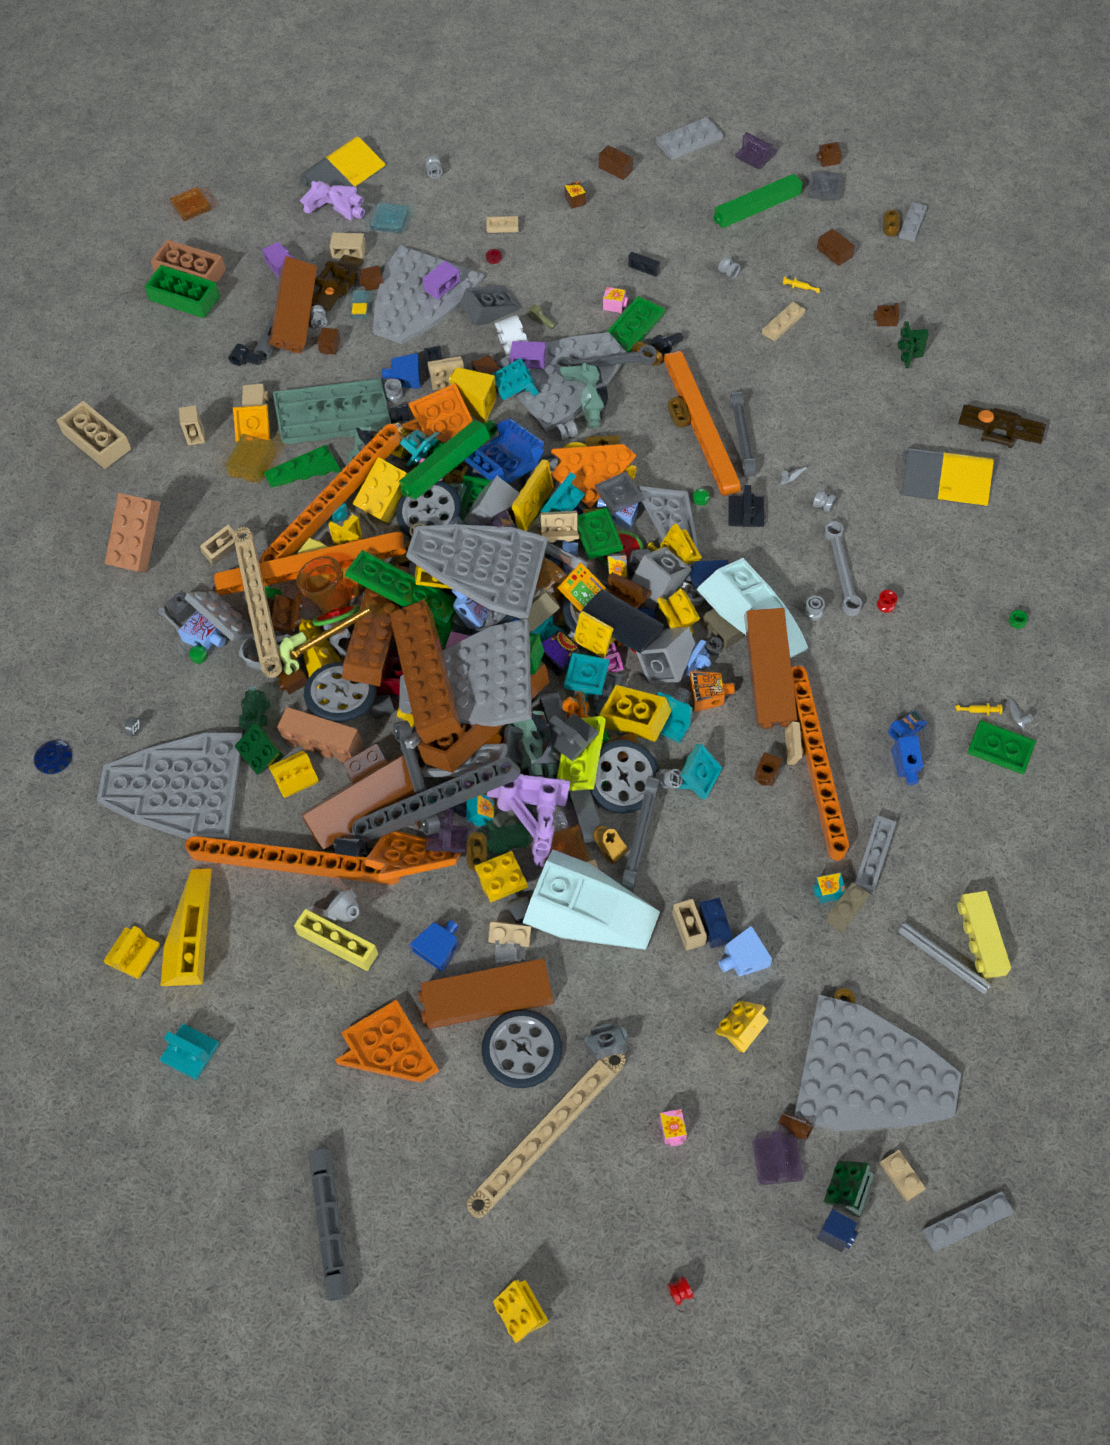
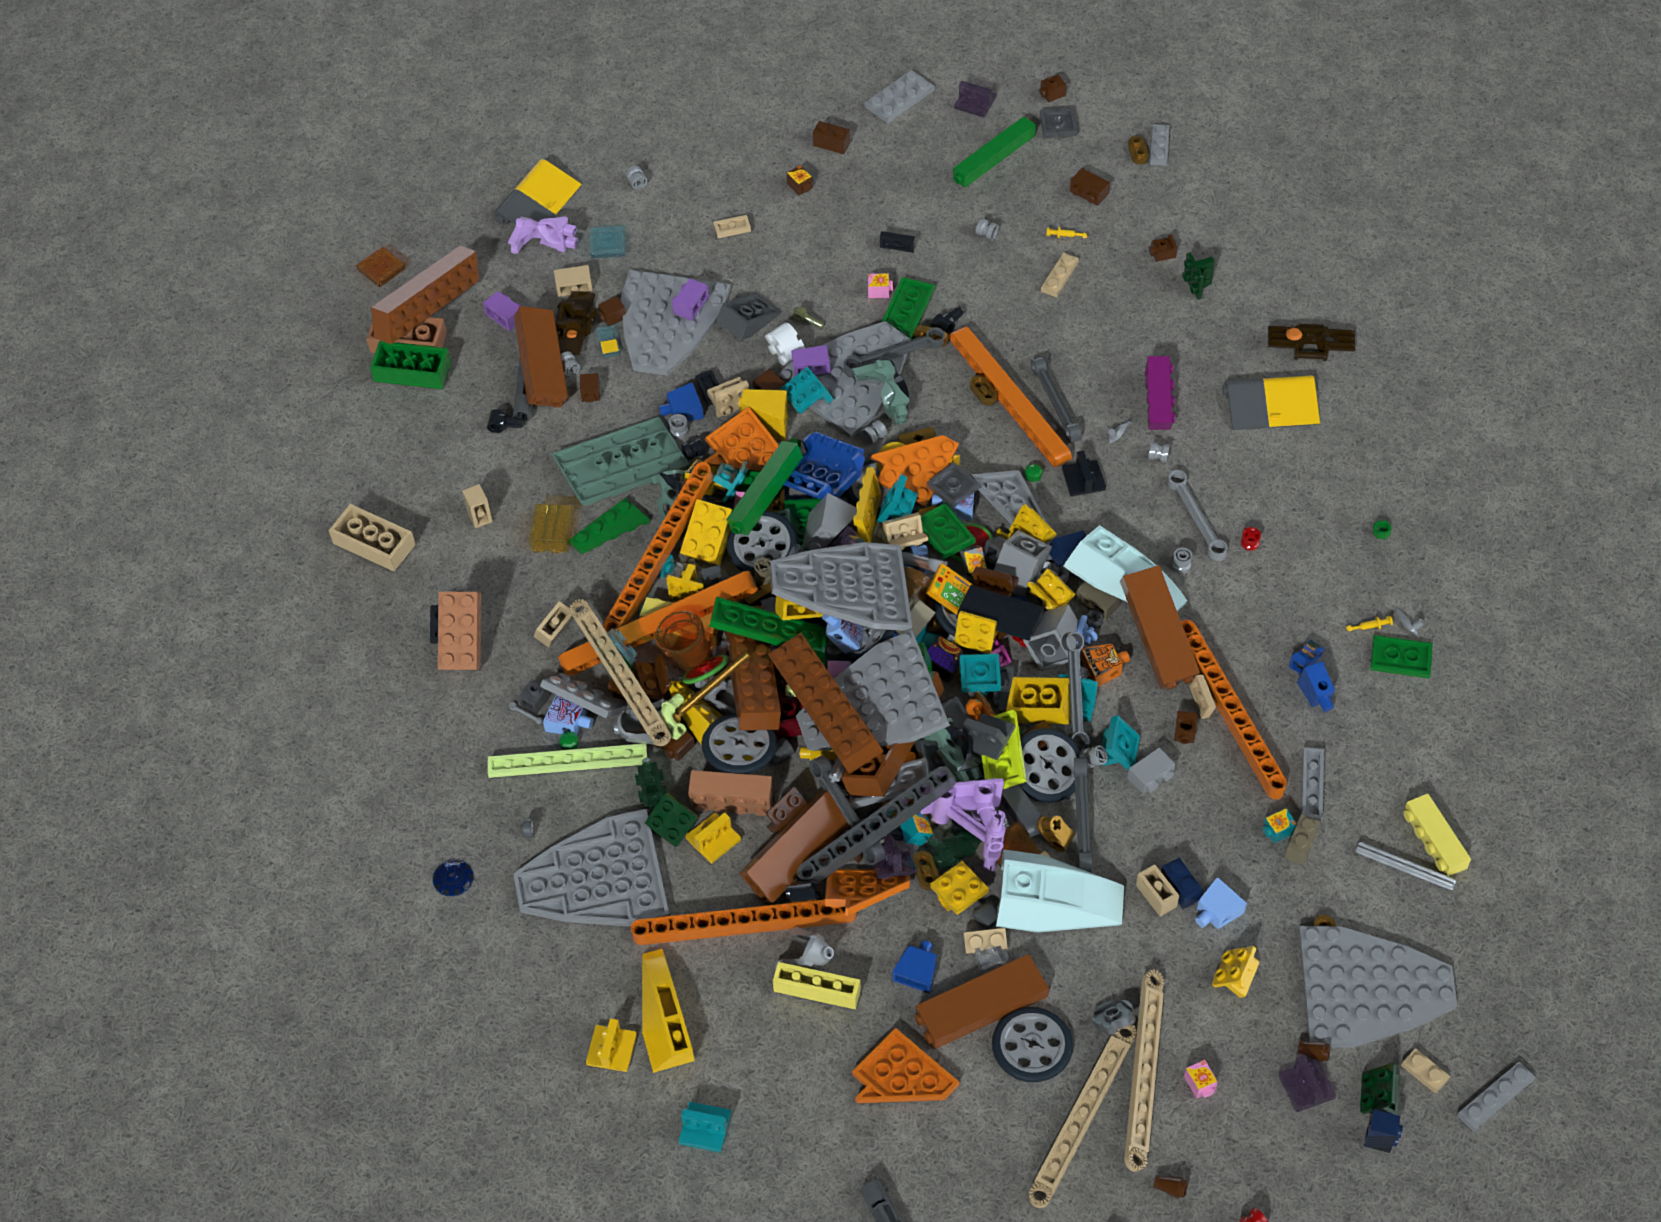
camera: 15 degrees left, 5 degrees down
(189, 671) = (566, 760): none -> yellowish green plate
(209, 231) = (424, 294): none -> dark orange brick
(251, 421) = (539, 489): light orange tile -> none
(254, 395) = (533, 468): tan brick -> none
(263, 573) = (628, 652): none -> clear light blue plate
(370, 529) = (711, 576): none -> dark grey tile
(493, 256) = (733, 262): dark red tile -> none
(610, 1229) = (1172, 1185): none -> reddish brown cone
(620, 1105) = (1144, 1071): none -> tan plate
(668, 709) = (1075, 687): none -> dark grey piece
(721, 805) = (1151, 771): none -> light grey brick
(840, 446) = (1159, 393): none -> magenta wedge

